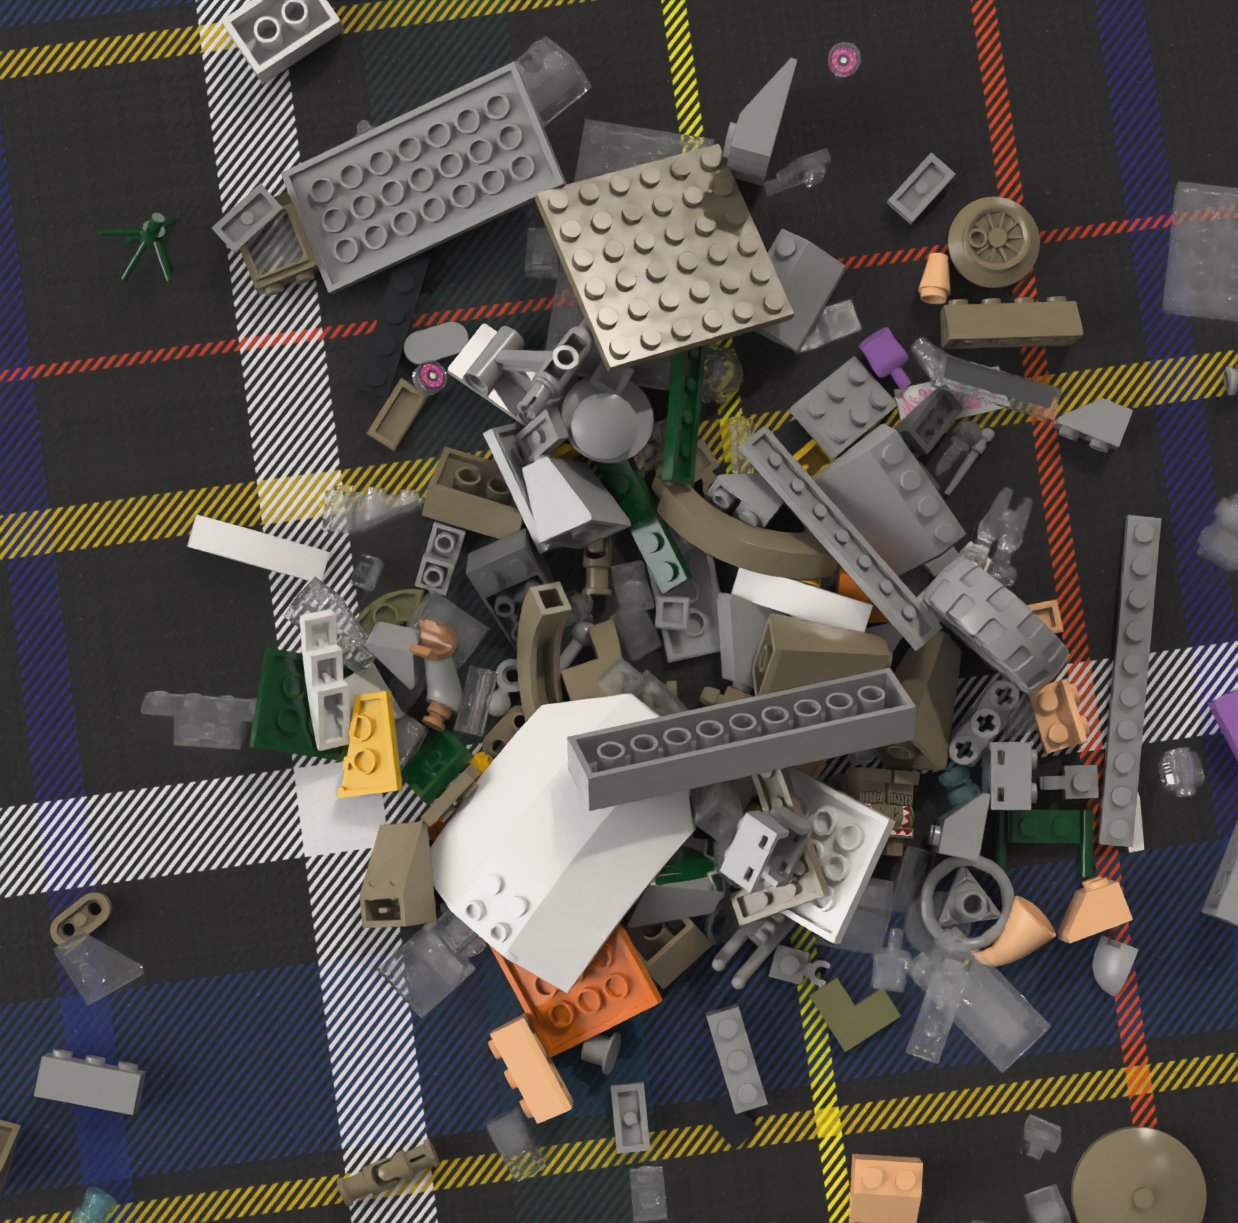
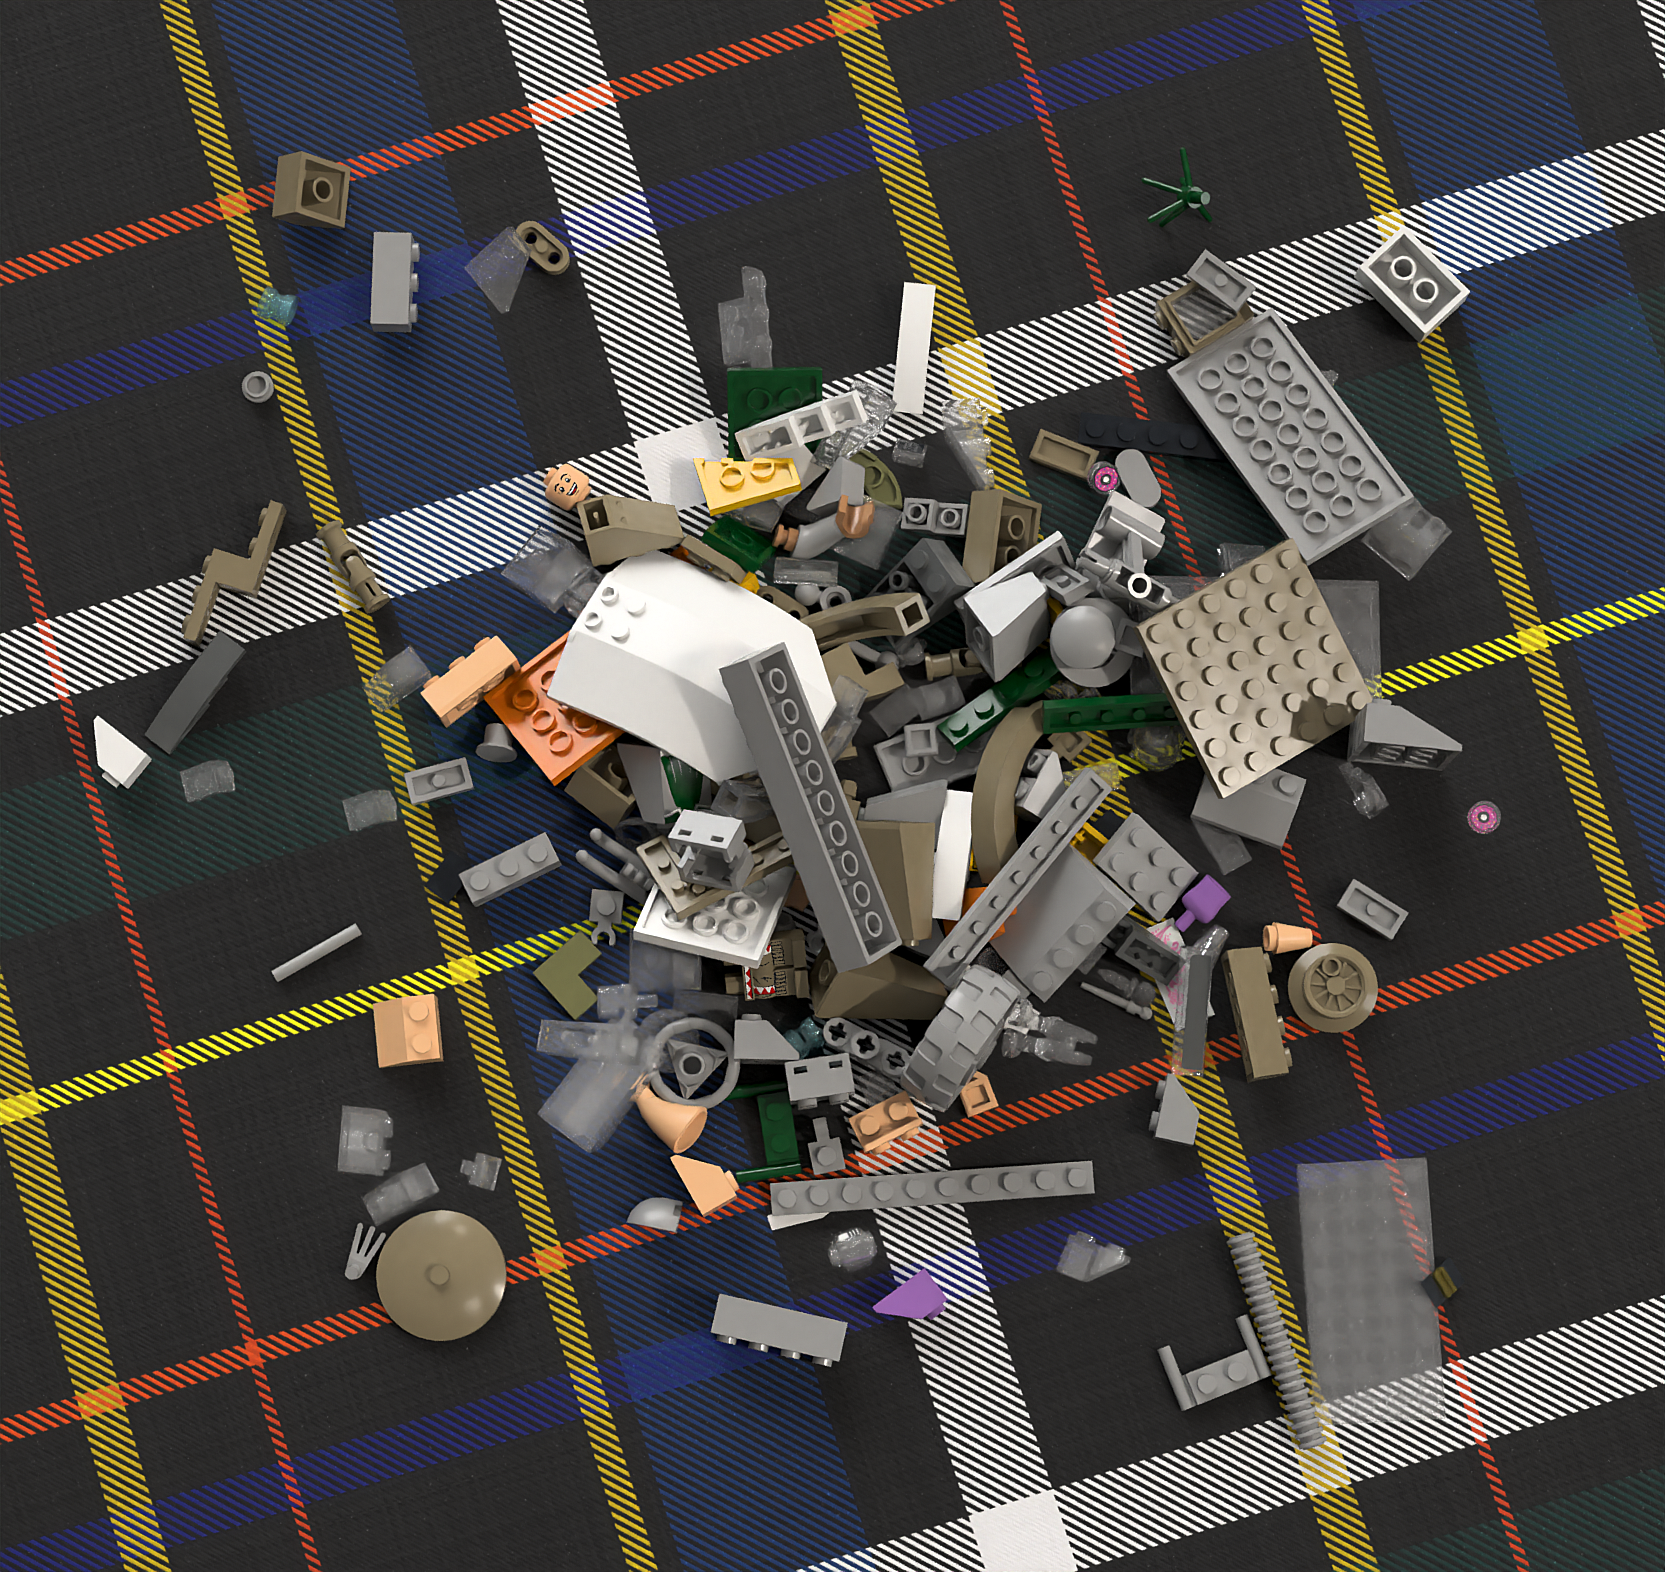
camera: 80 degrees right, 5 degrees down
(342, 934) = (566, 486): none -> light nougat head

